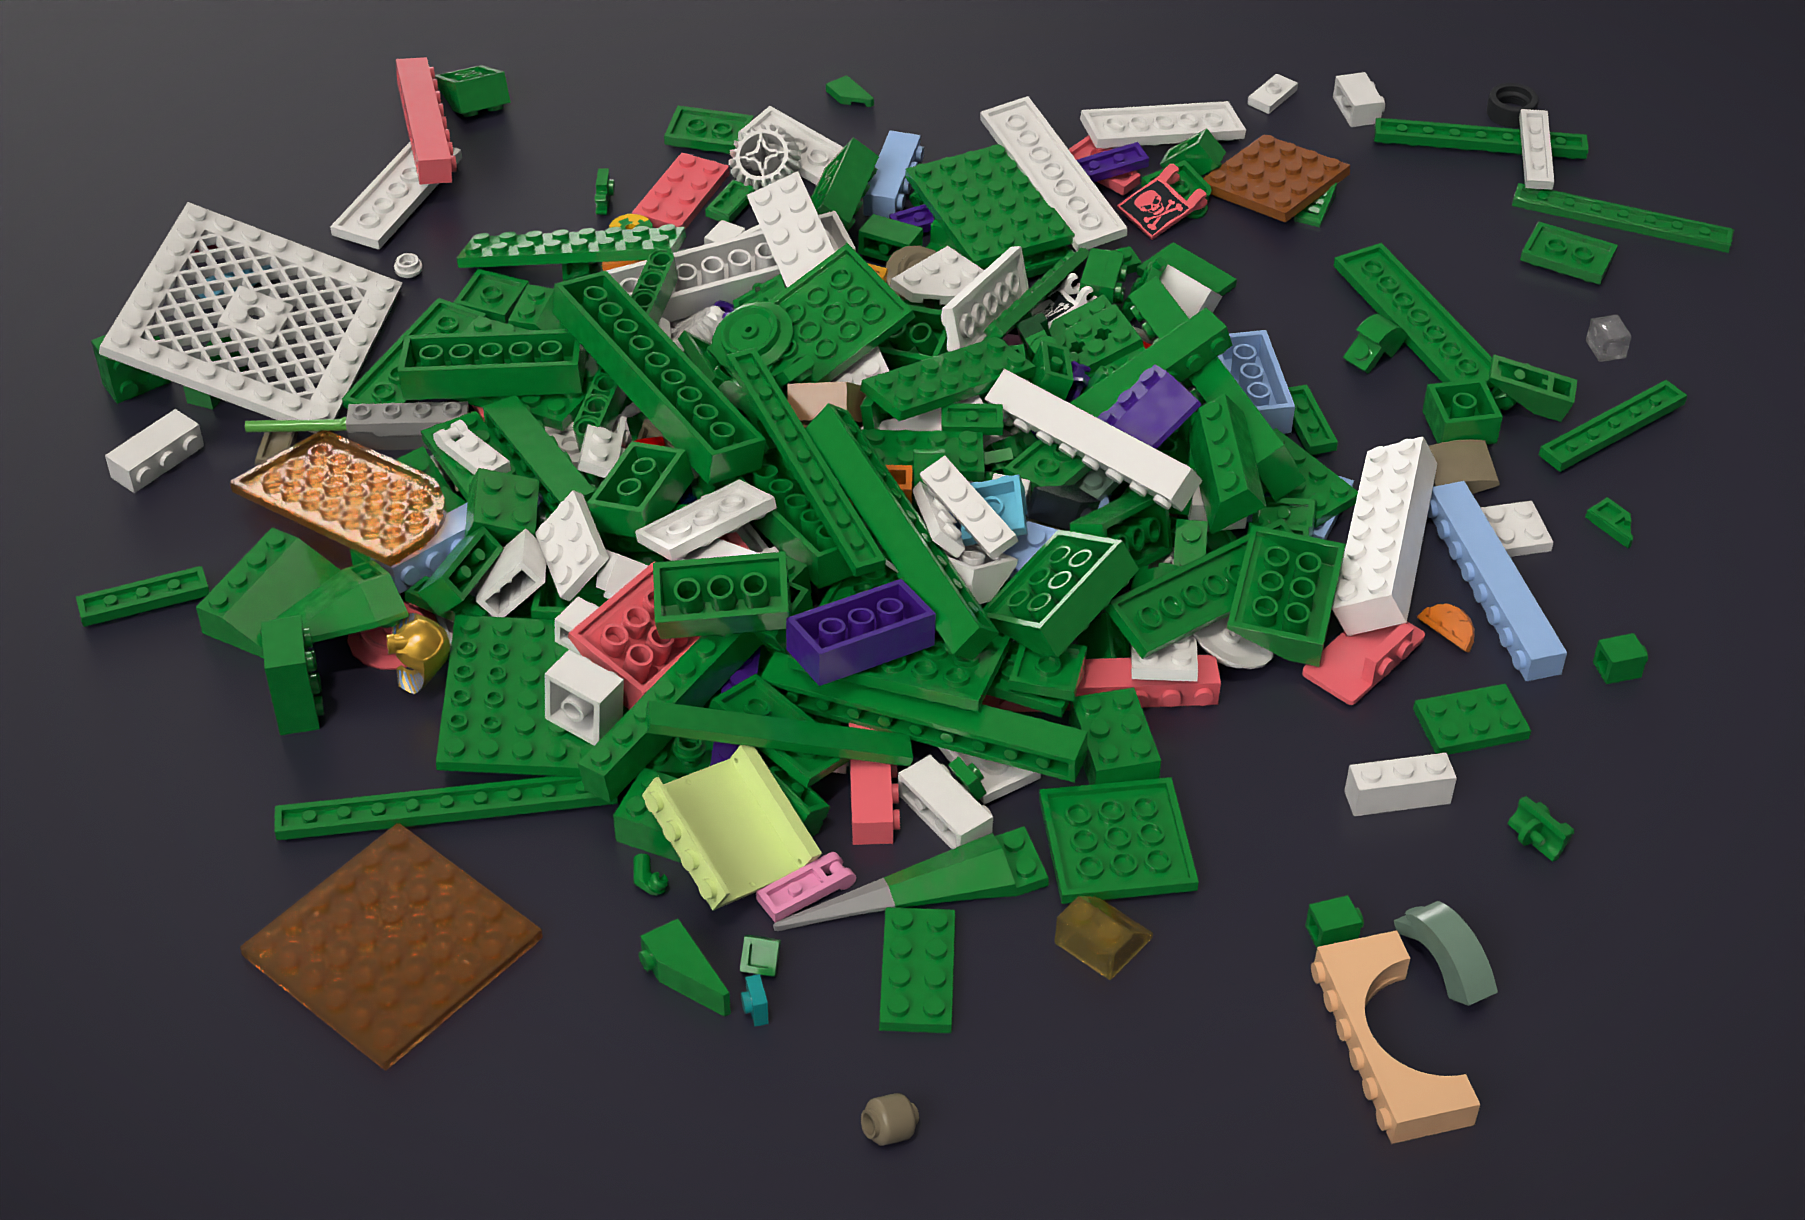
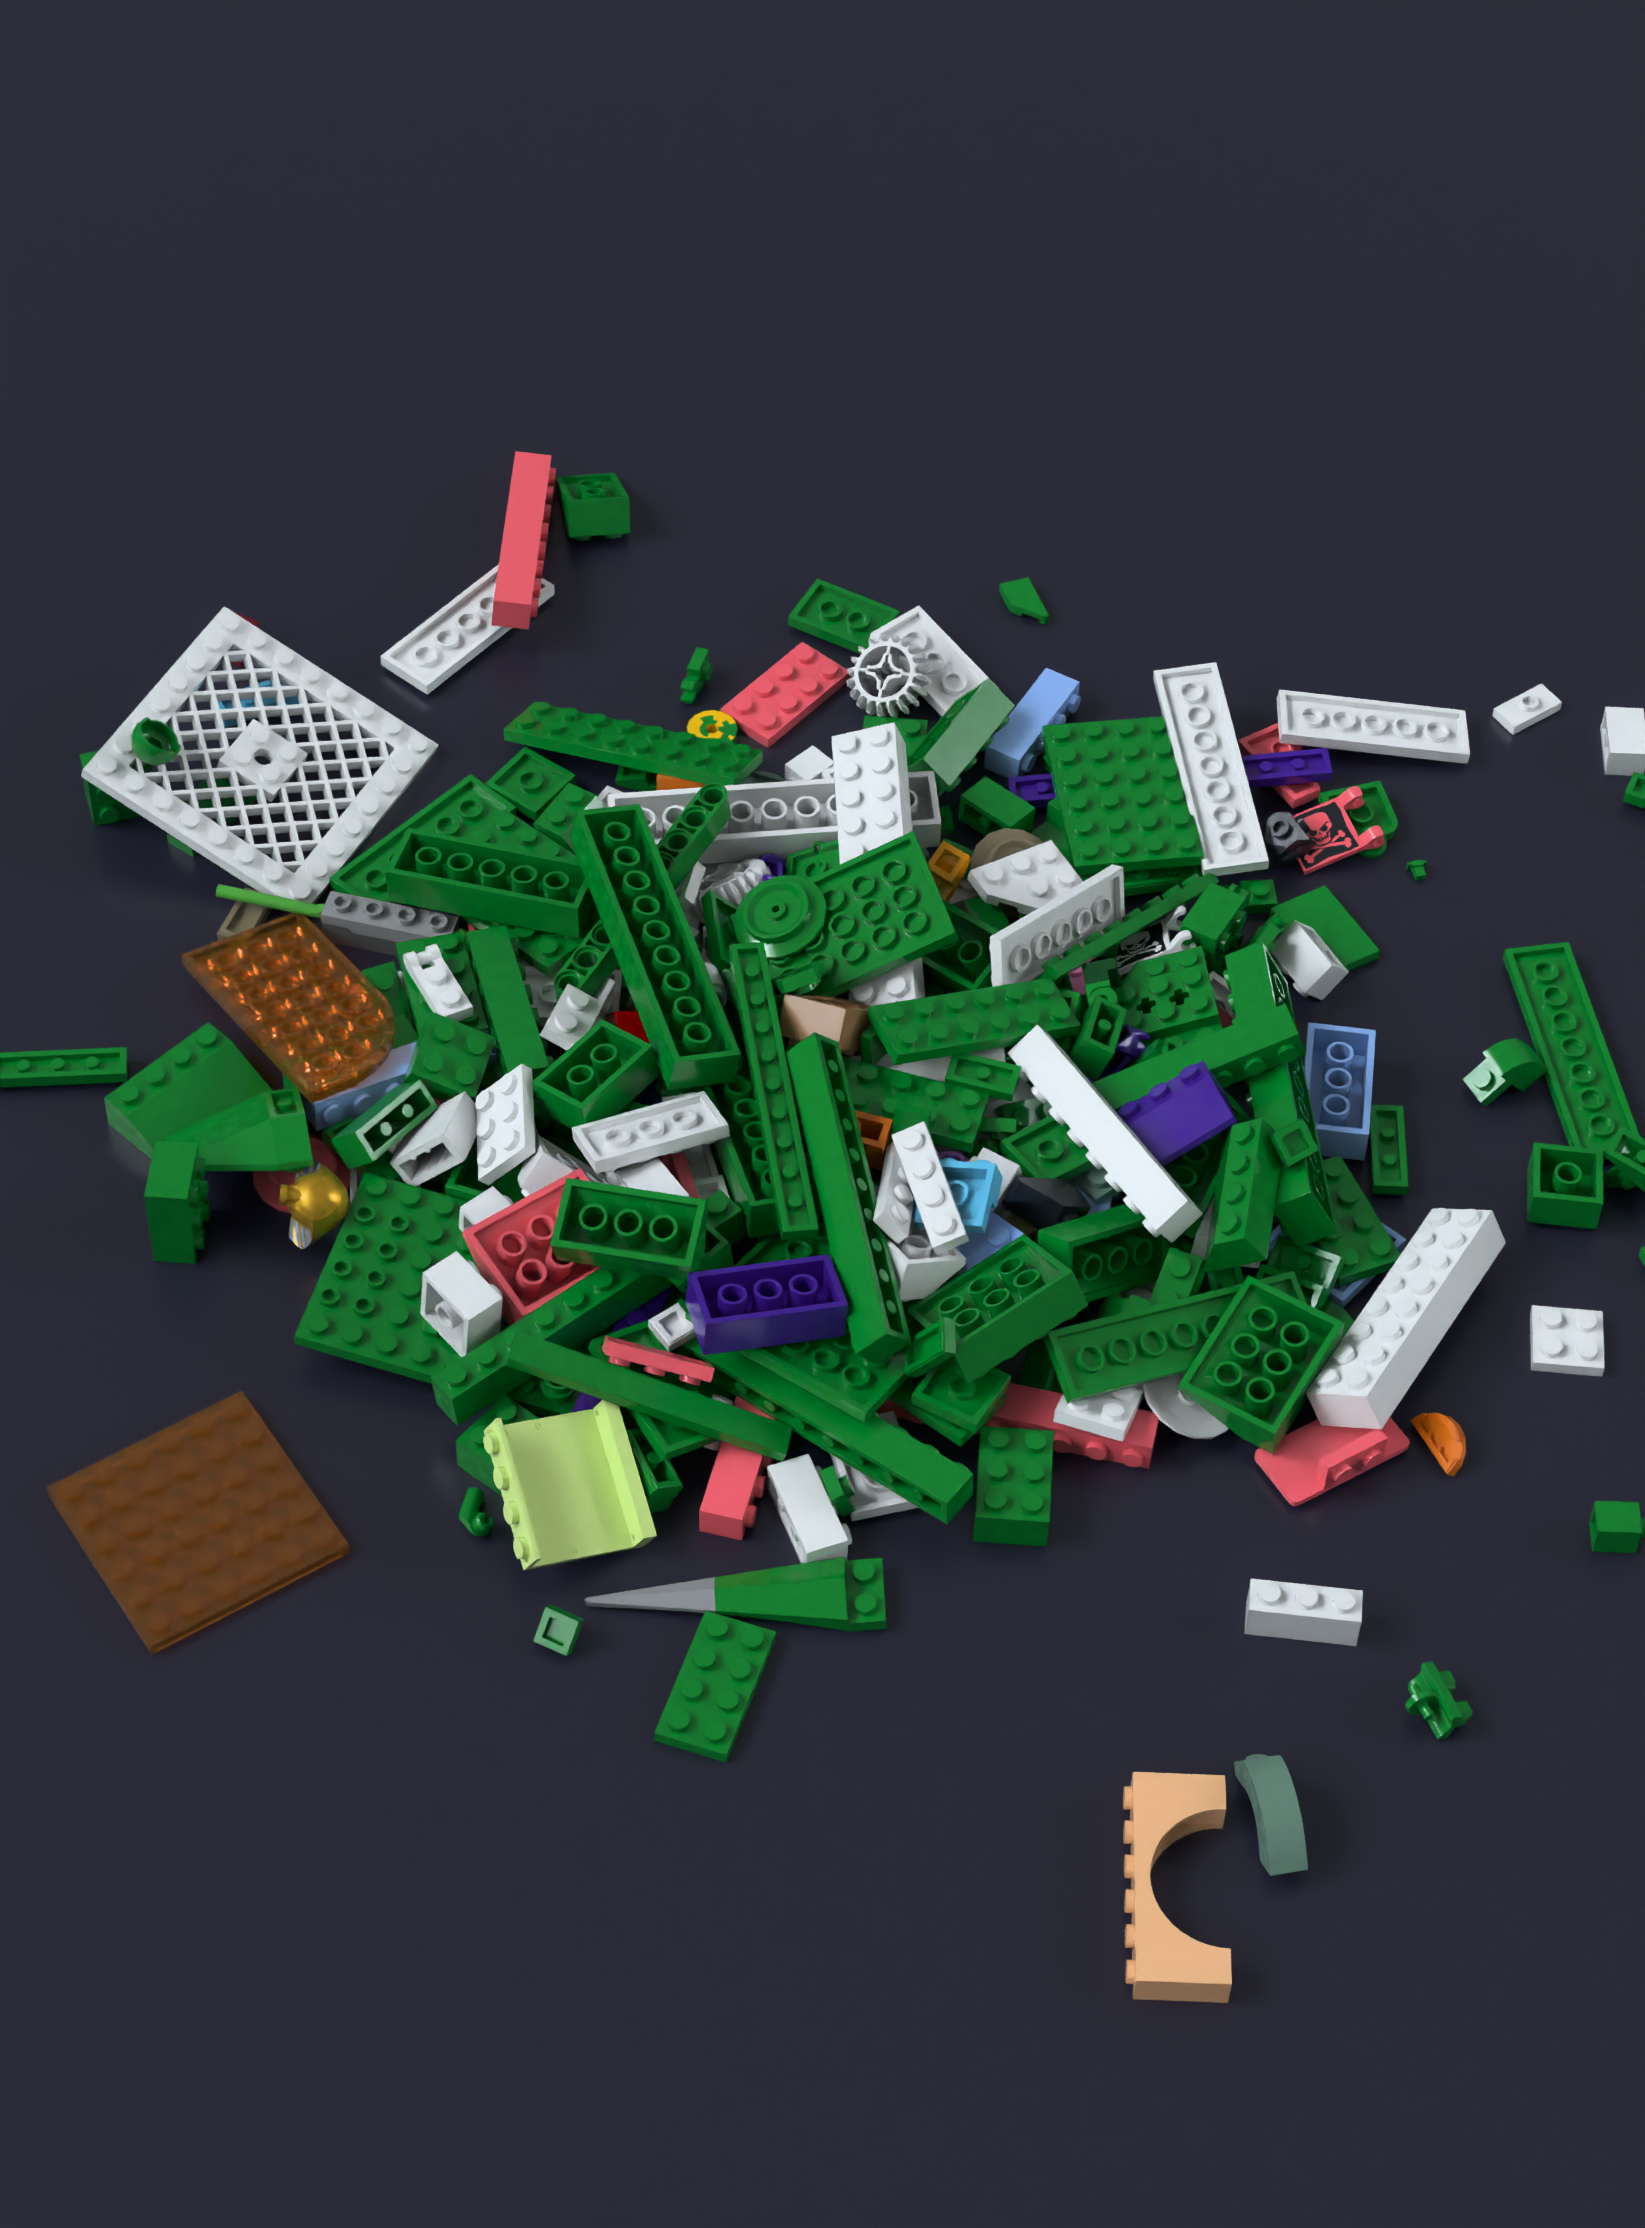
camera: 15 degrees right, 5 degrees up
(154, 450) = (116, 896): white brick -> none
(158, 312) = (154, 742): none -> green hair
(408, 265) = (451, 724): white plate -> none
(432, 806) = (279, 1381): green plate -> none
(683, 967) = (474, 1620): green slope -> none
(729, 202) = (835, 719): green plate -> none
(755, 1000) = (536, 1677): teal plate -> none
(777, 703) = (657, 1361): none -> coral plate
(778, 674) = (672, 1327): none -> white tile
(805, 886) = (631, 1566): bright pink plate -> none
(889, 1119) = (627, 1837): dark tan head -> none
(1017, 633) = (930, 1347): none -> green tile
(1100, 935) = (917, 1696): clear yellow slope -> none
(1117, 840) = (975, 1597): green plate -> none
(1132, 211) = (1285, 838): none -> black hand
(1200, 151) = (1400, 775): green slope -> none
(1239, 218) = (1417, 868): none -> green piece
(1256, 409) = (1293, 1142): none -> green plate
(1276, 177) = (1480, 826): dark orange plate -> none
(1319, 206) = (1525, 851): green slope -> none
(1333, 921) = (1167, 1748): green brick -> none
(1464, 462) = (1540, 1248): dark tan slope -> none
(1471, 719) = (1419, 1556): green plate -> none
(1496, 582) = (1514, 1400): light blue brick -> none

